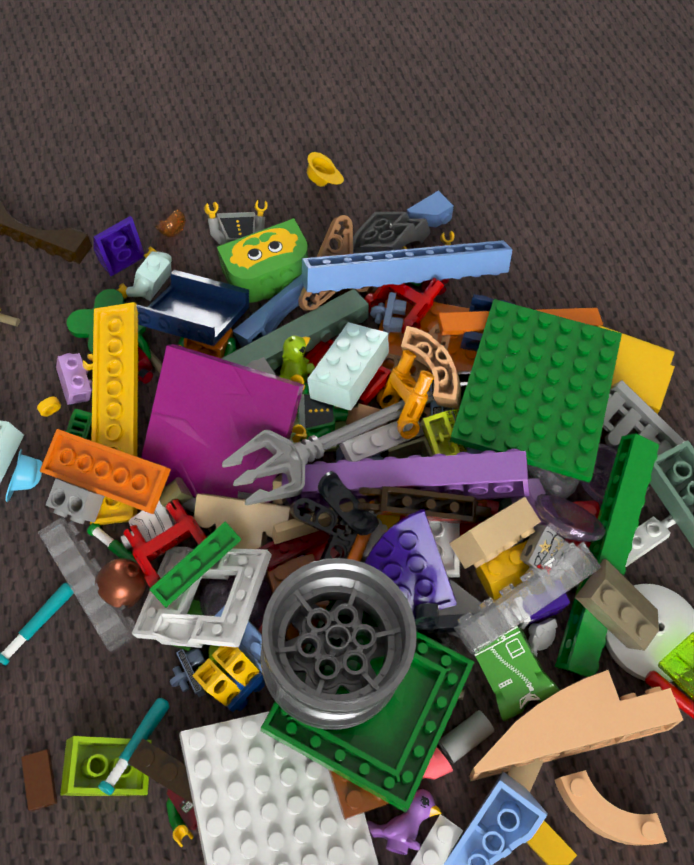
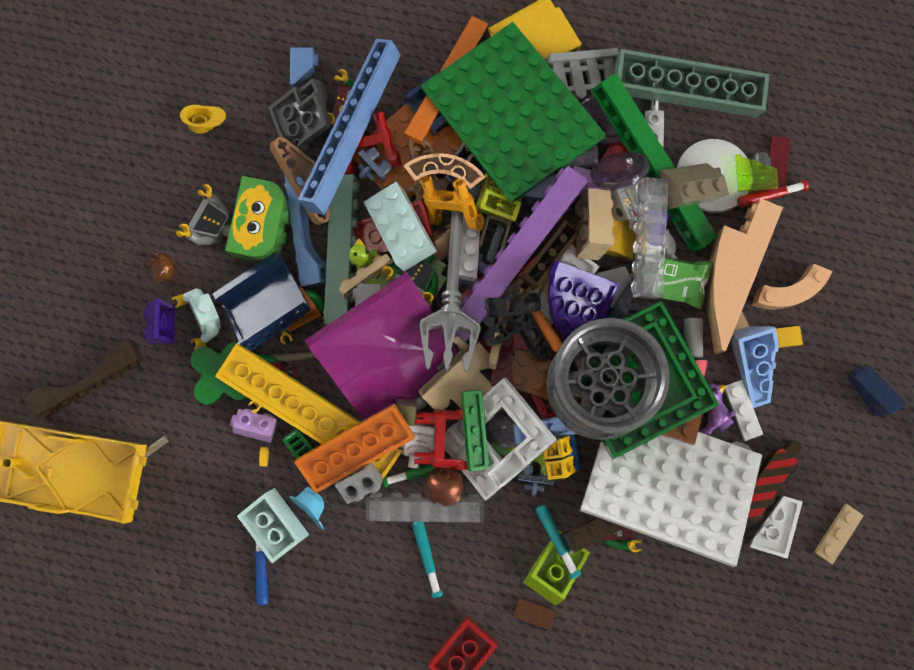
camera: 55 degrees left, 20 degrees up
(280, 365) = (364, 274): none -> tan plate

